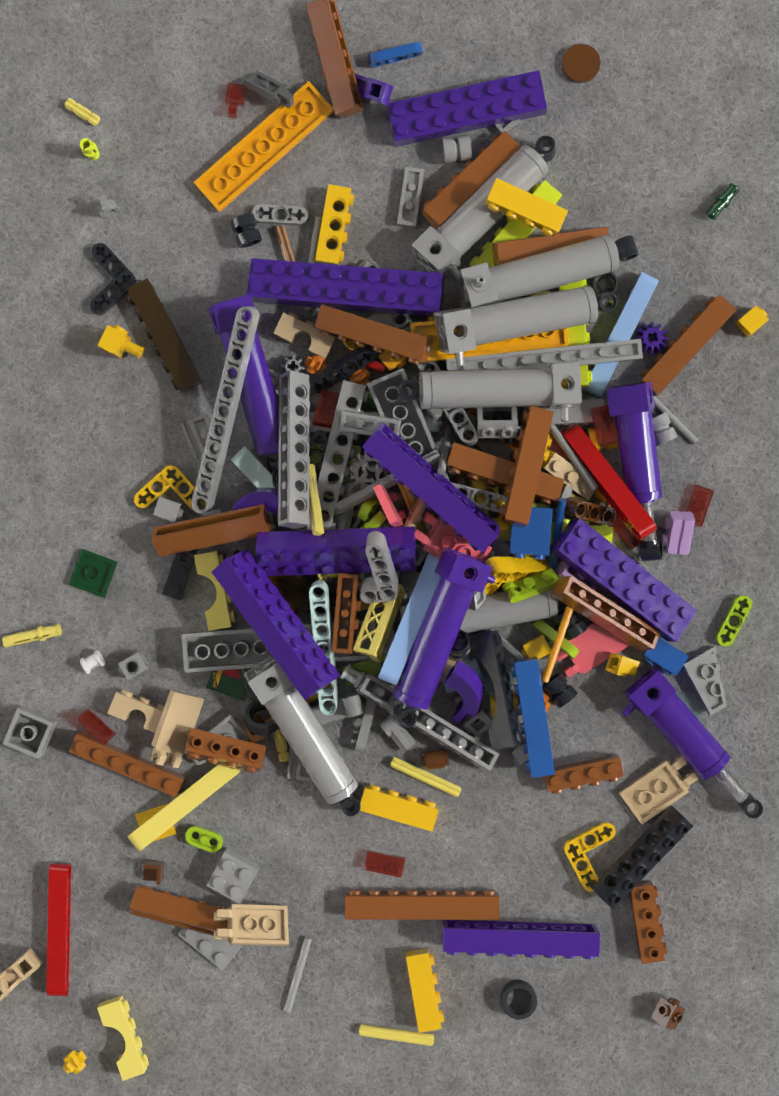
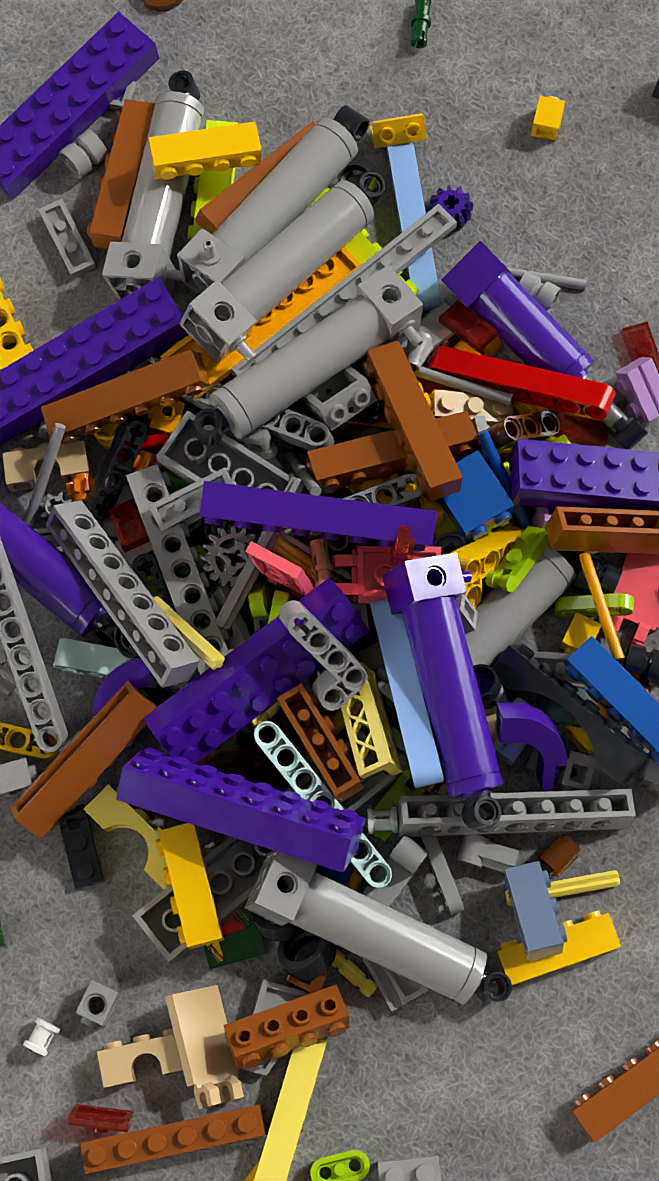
camera: 30 degrees left, 15 degrees down
(222, 643) = (190, 885): none -> yellow brick
(297, 344) = (44, 473): none -> light grey bar
(384, 863) = (592, 1035): clear red plate -> none
(399, 782) = (535, 911): none -> sand blue brick
(463, 544) = (403, 545): none -> clear red plate
(558, 426) = (417, 355): none -> light grey cone
(654, 267) = (398, 130): none -> yellow bracket
(688, 344) = (496, 182): dark orange brick -> none

